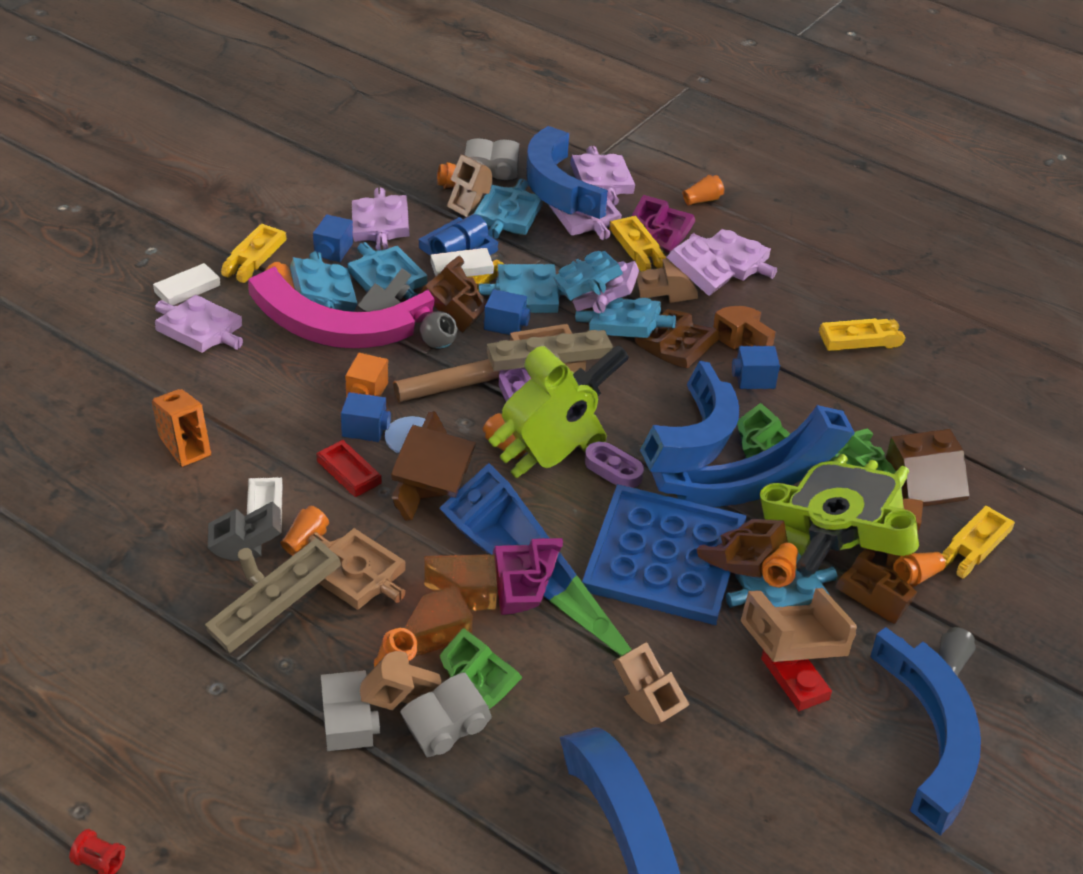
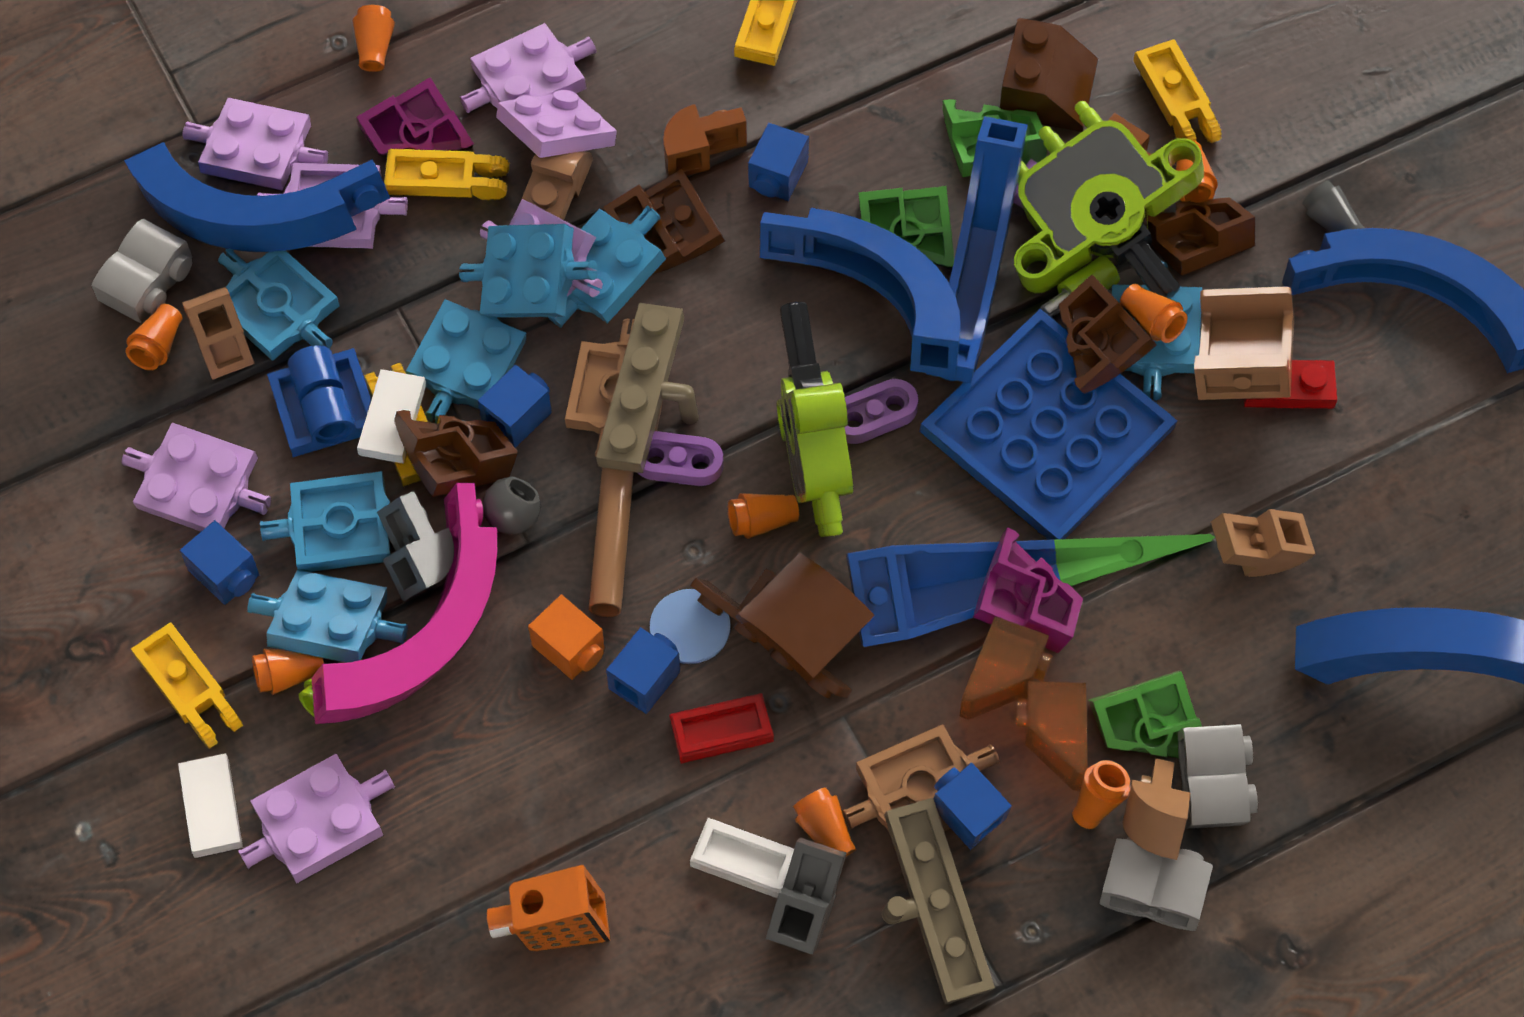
camera: 60 degrees left, 20 degrees up
(345, 581) = (970, 804): none -> blue brick

